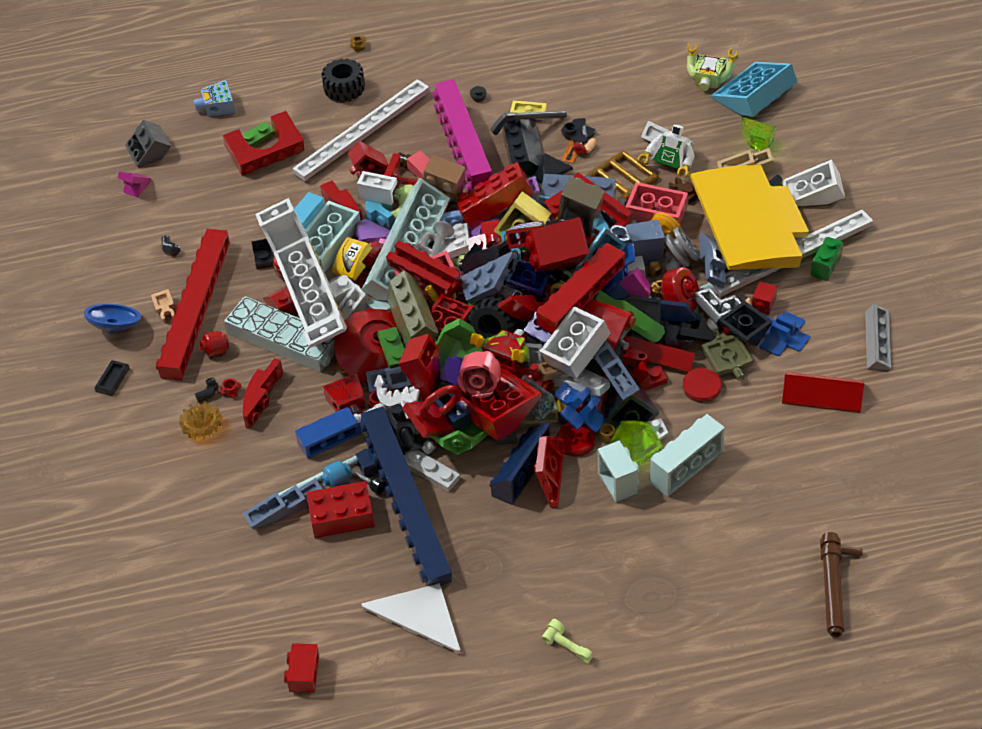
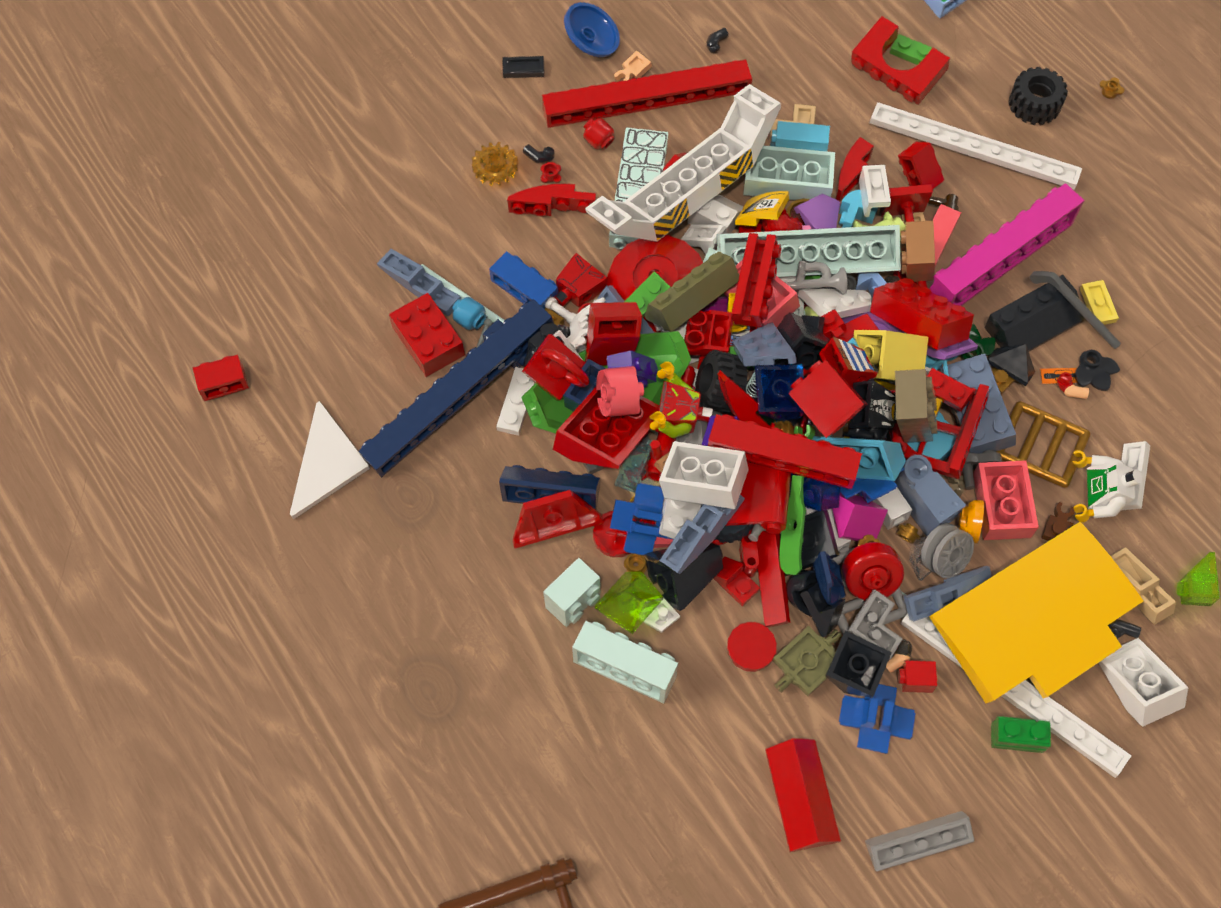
camera: 65 degrees right, 15 degrees up
(478, 93) = (1098, 240): pearl dark grey plate -> none
(555, 632) = (340, 603): yellowish green brick -> none

